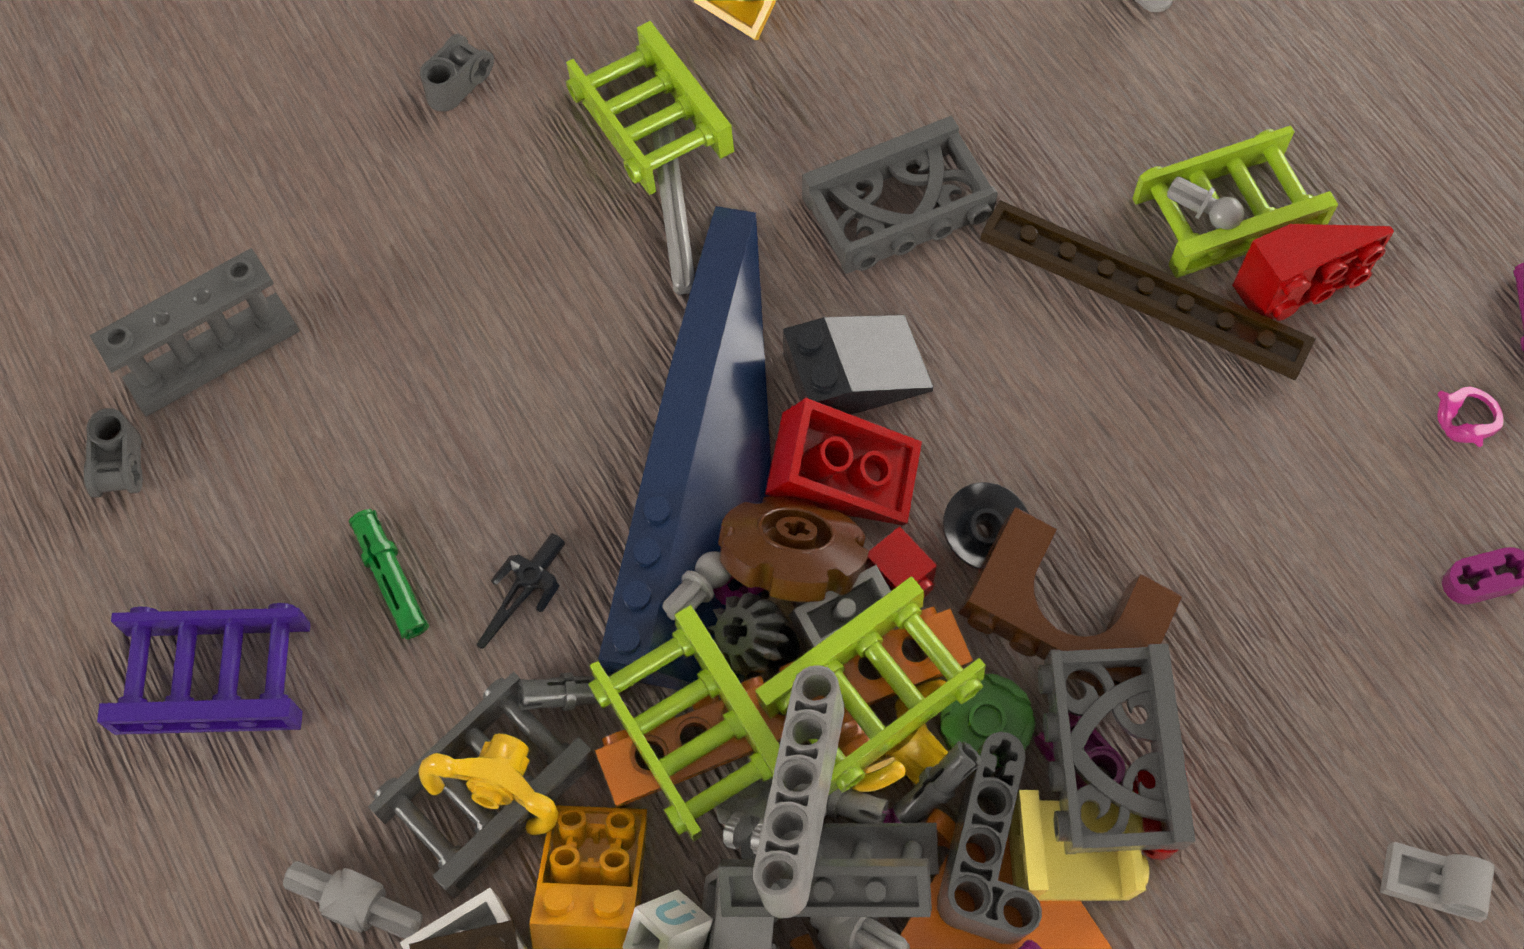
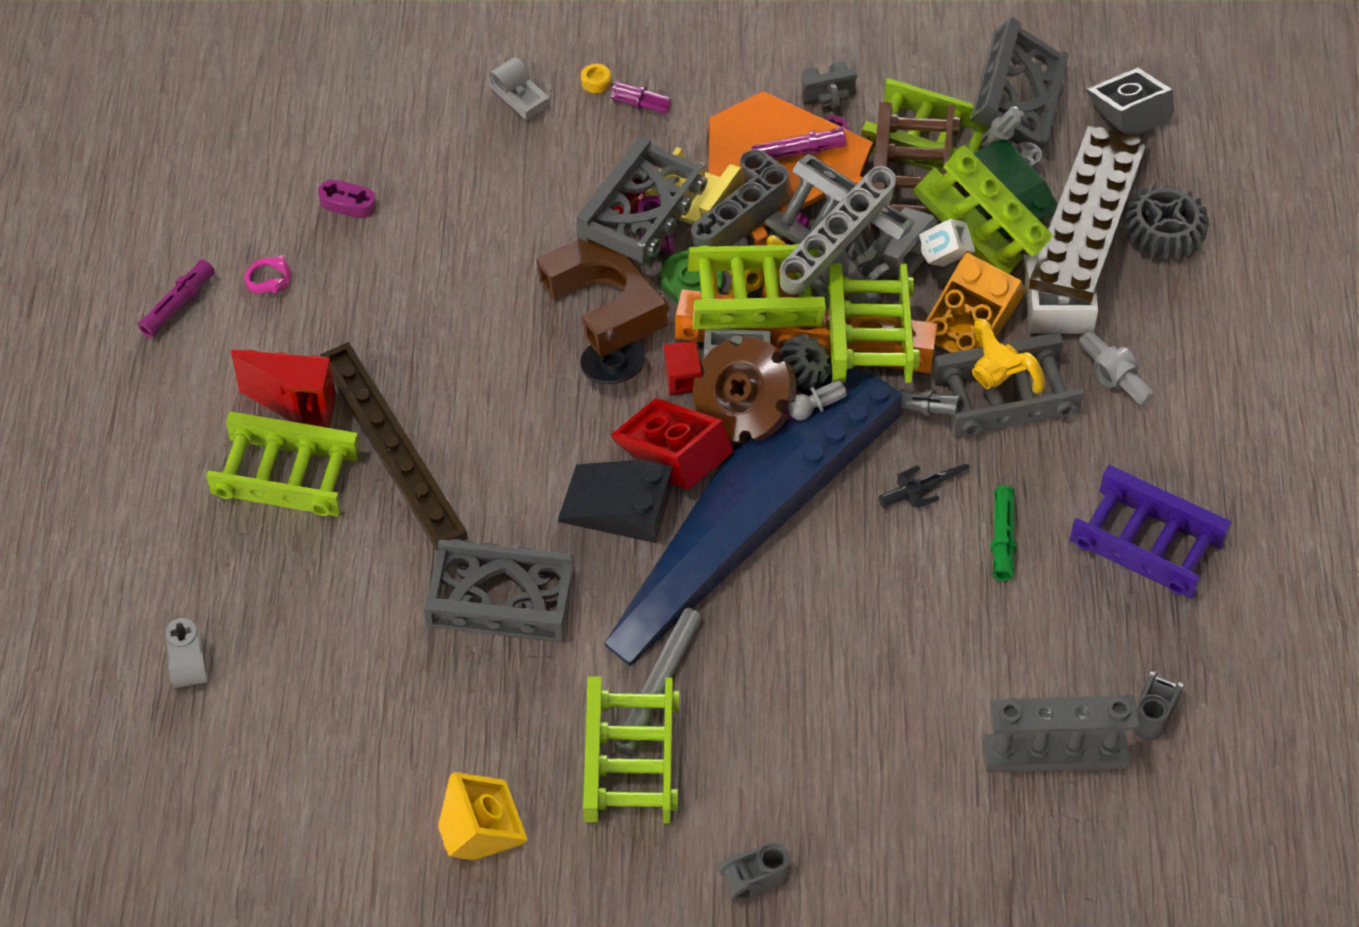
camera: 150 degrees left, 10 degrees down
(937, 783) = (742, 236): dark grey pin -> none
(1222, 212) = (312, 454): light grey axle -> none

